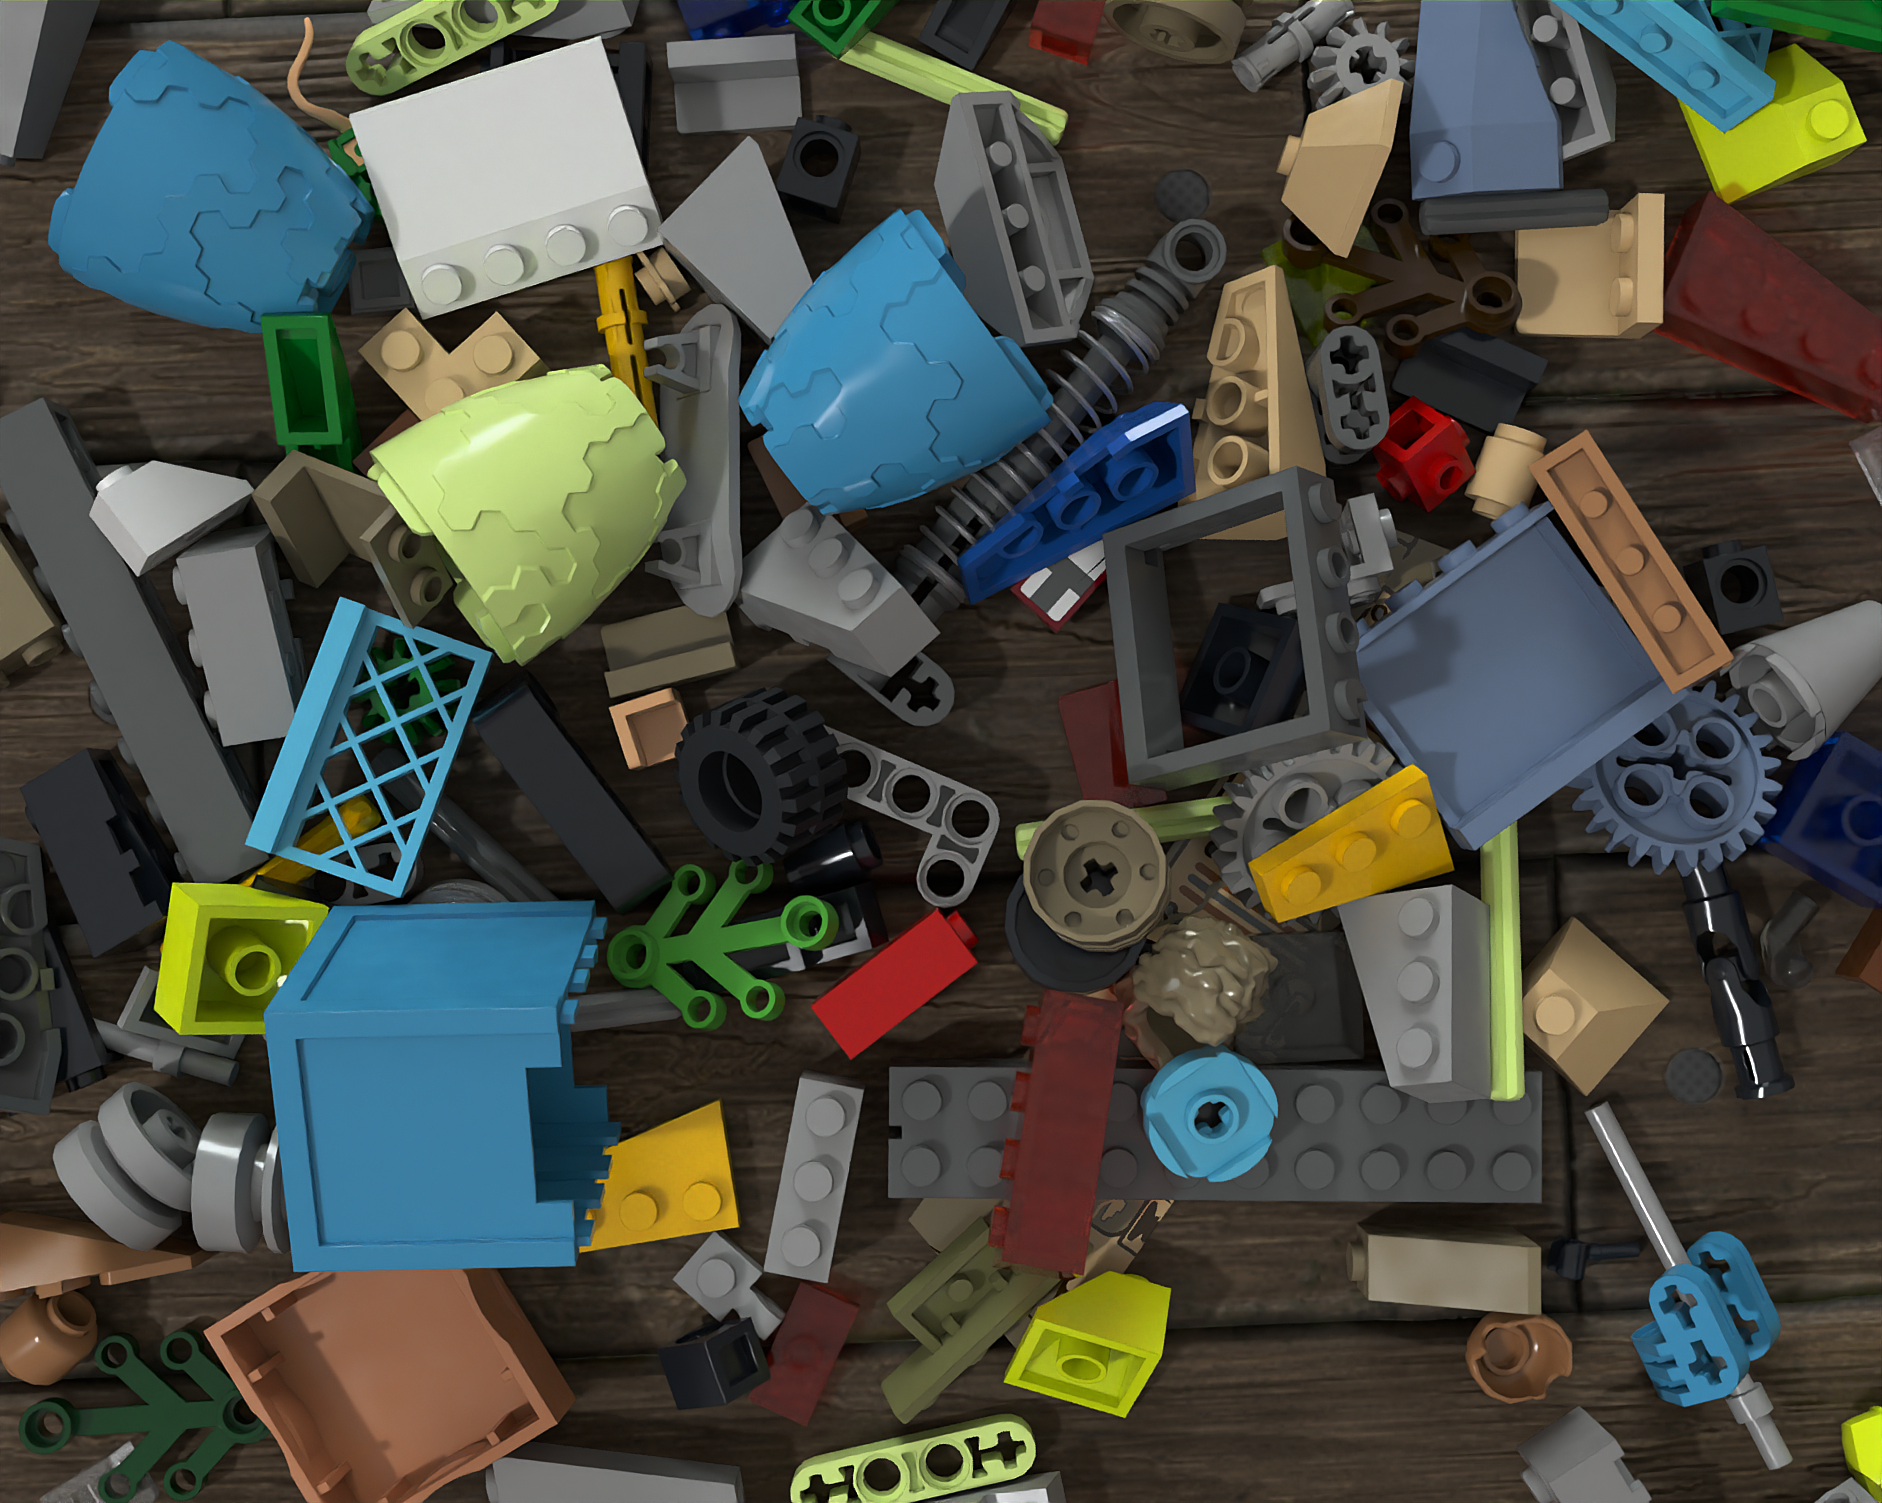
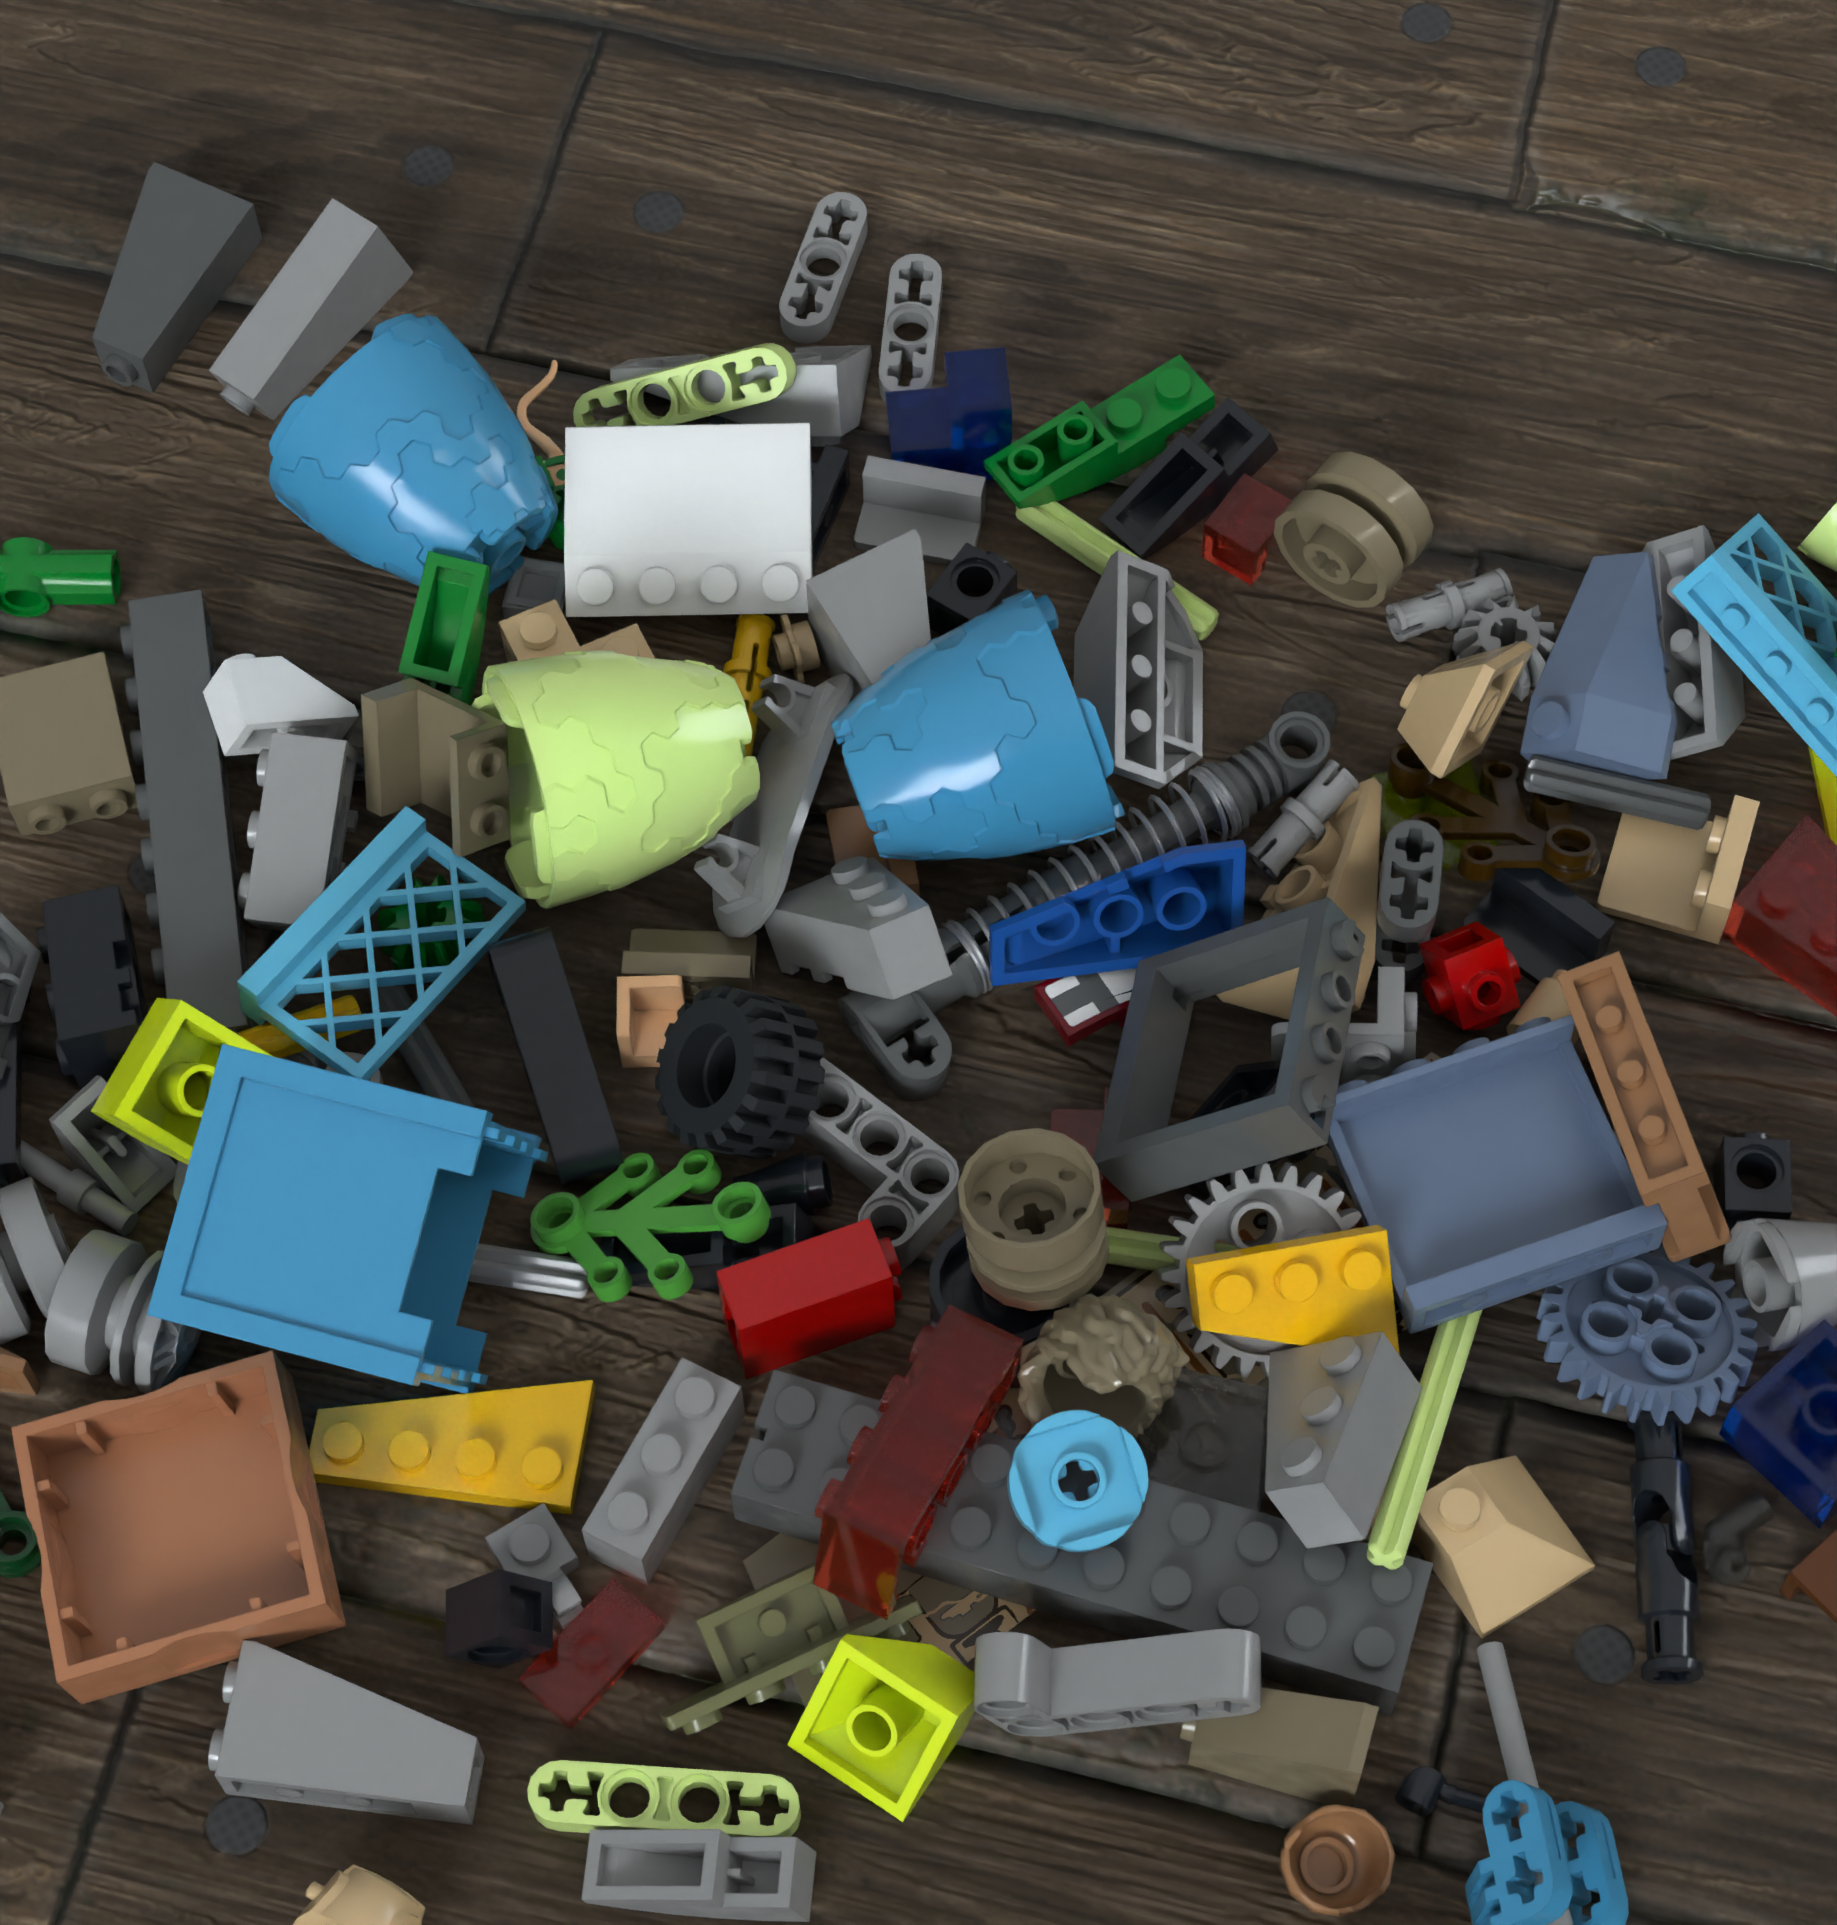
camera: 20 degrees right, 25 degrees down
(1213, 325) = (1302, 818): none -> light grey pin
(1289, 1264) = (1115, 1683): none -> light grey beam

